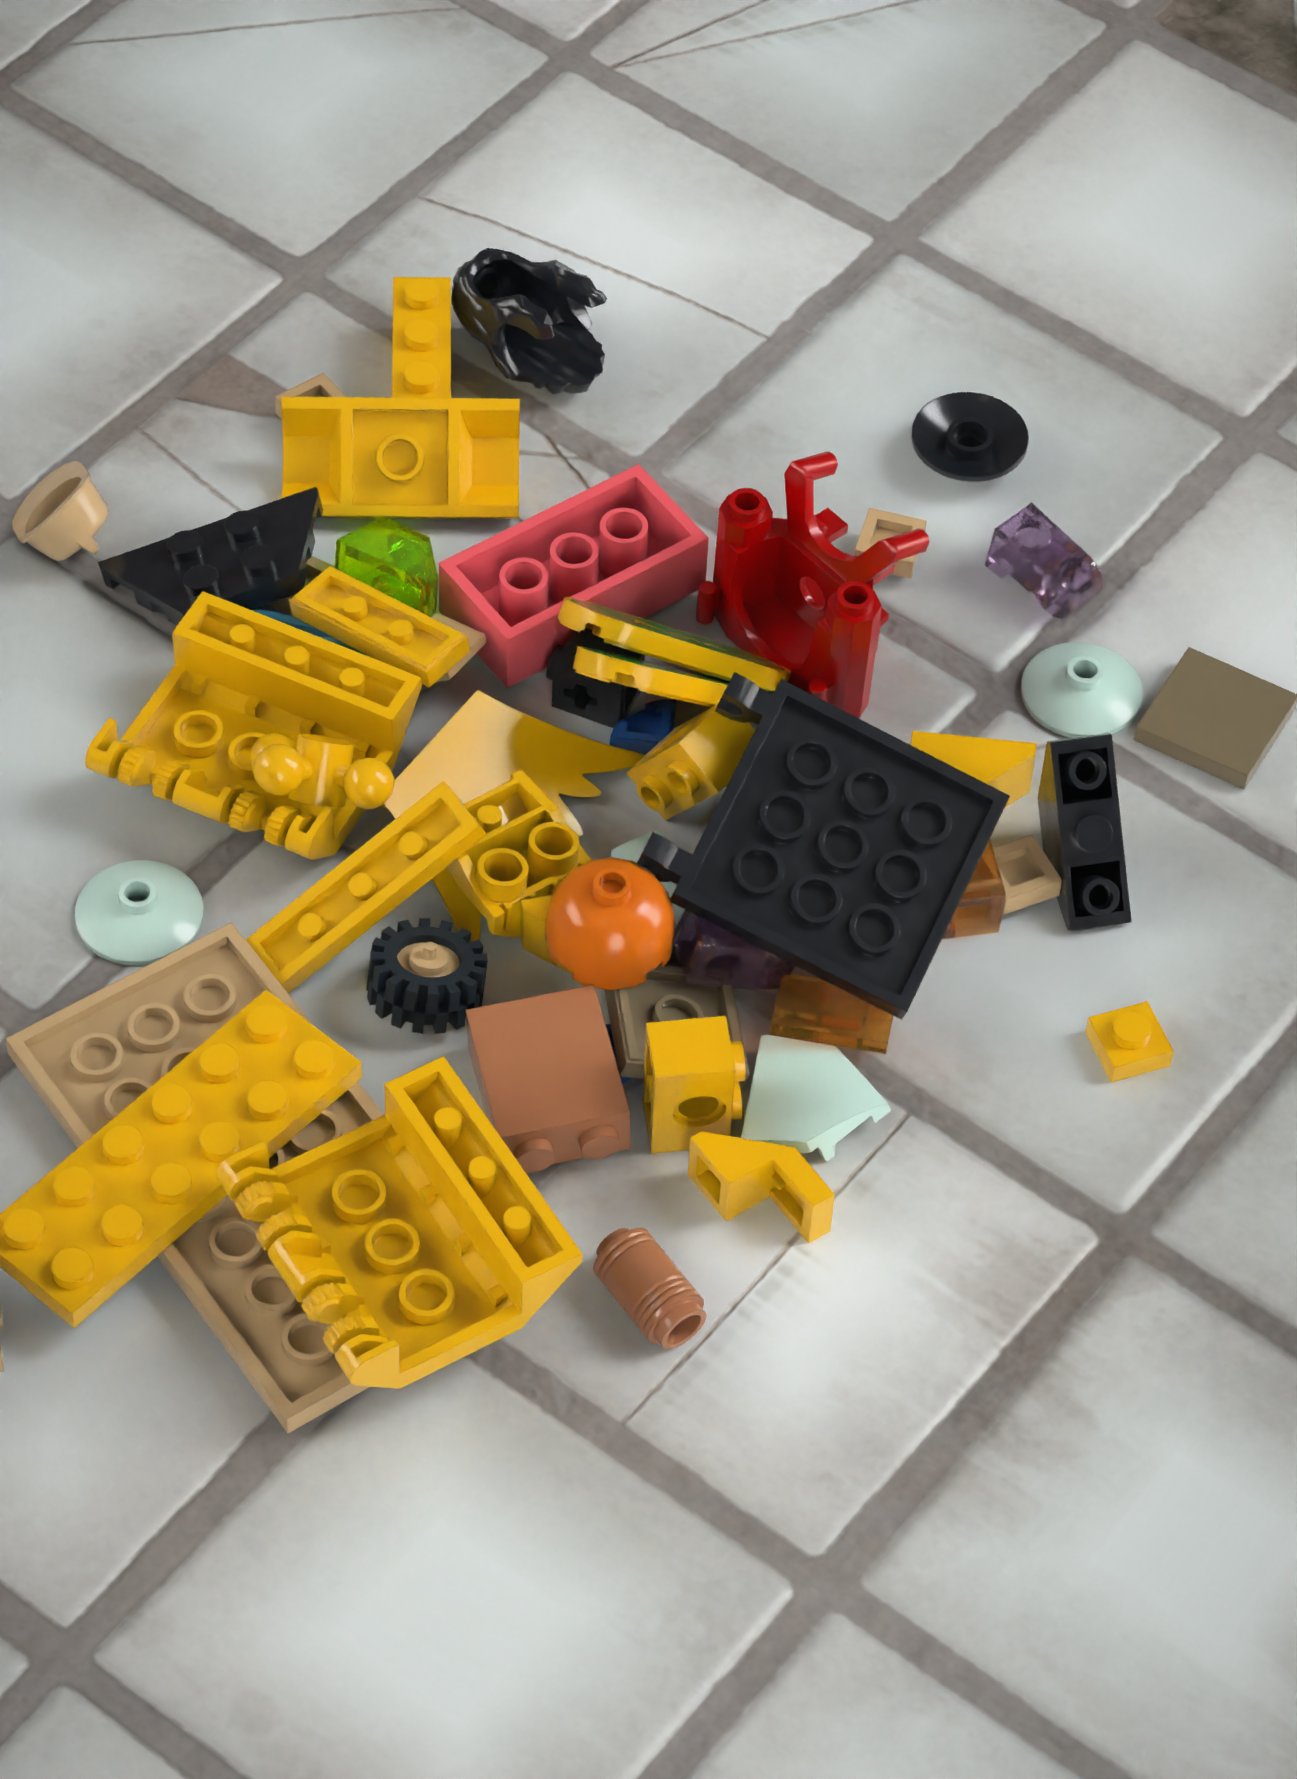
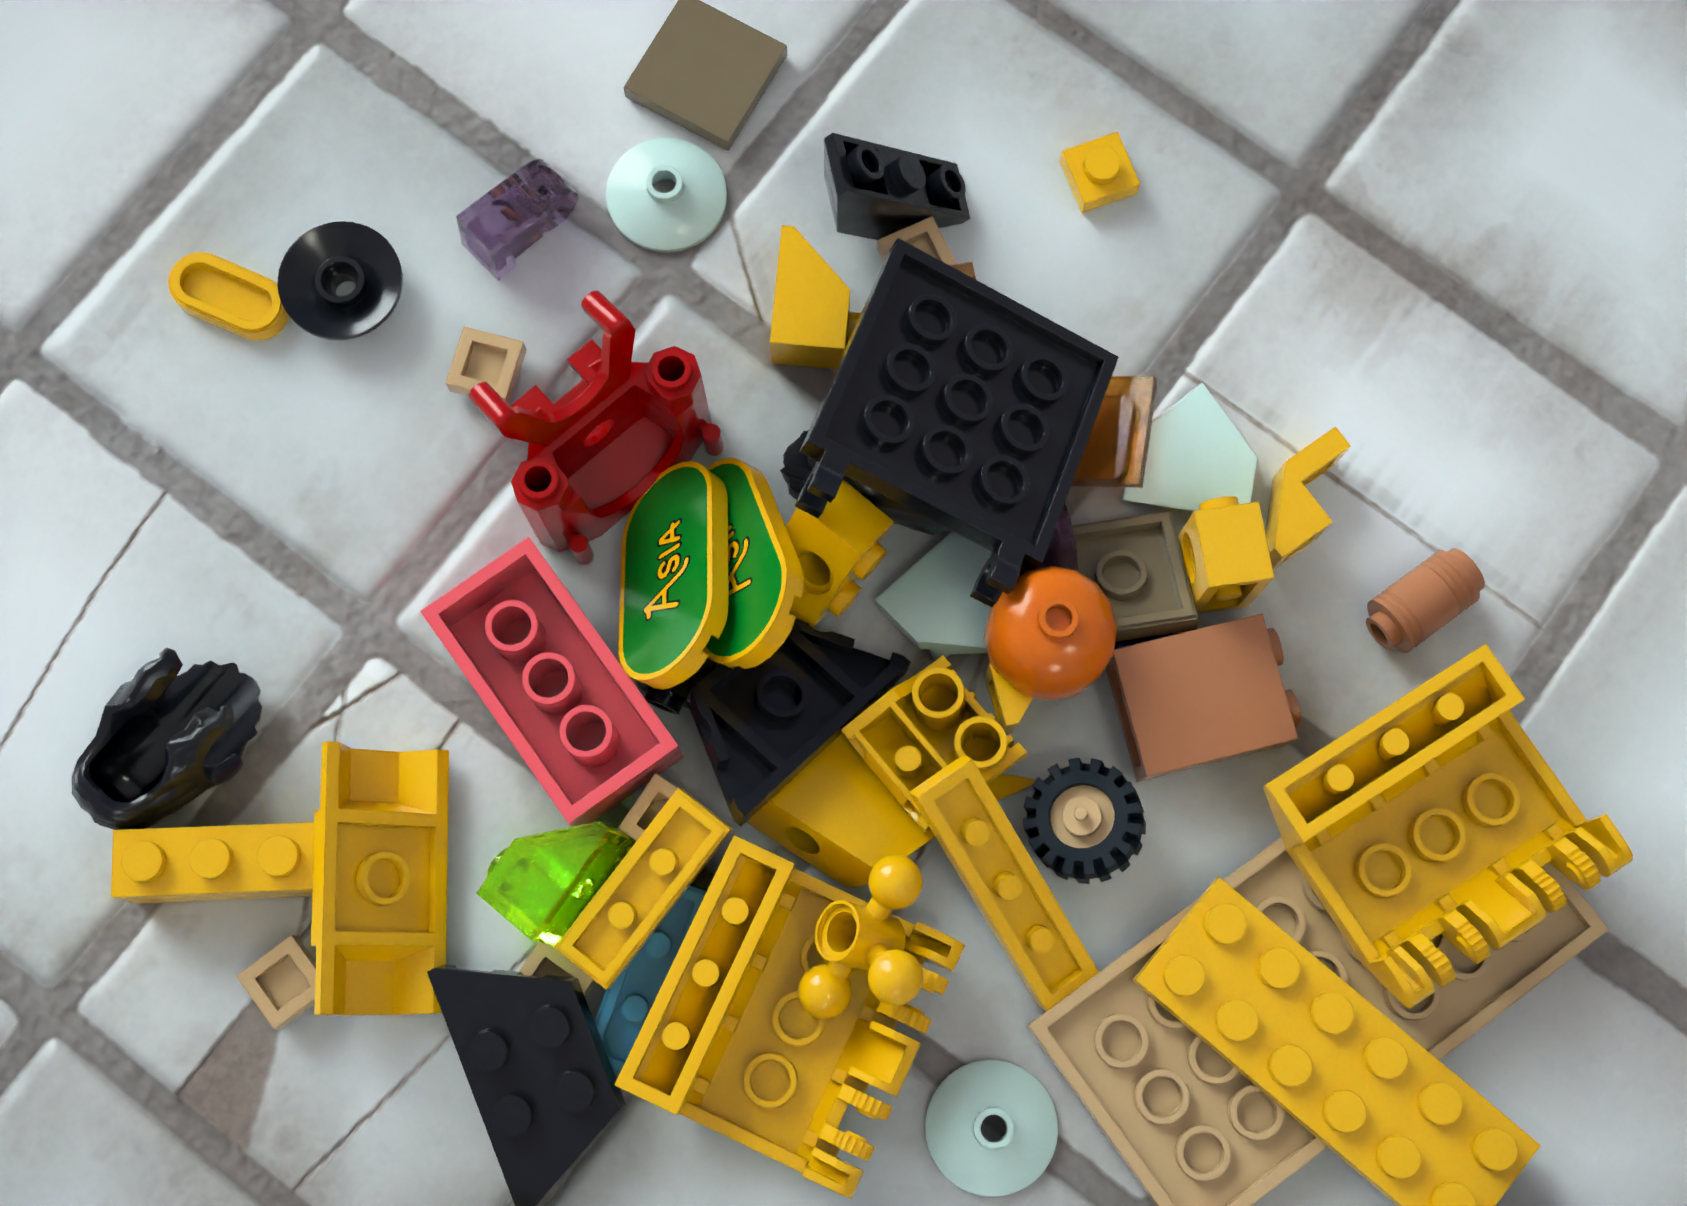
camera: 90 degrees left, 25 degrees up
(549, 726) = (783, 713): none -> black wing
(957, 364) = (228, 296): none -> yellow tile

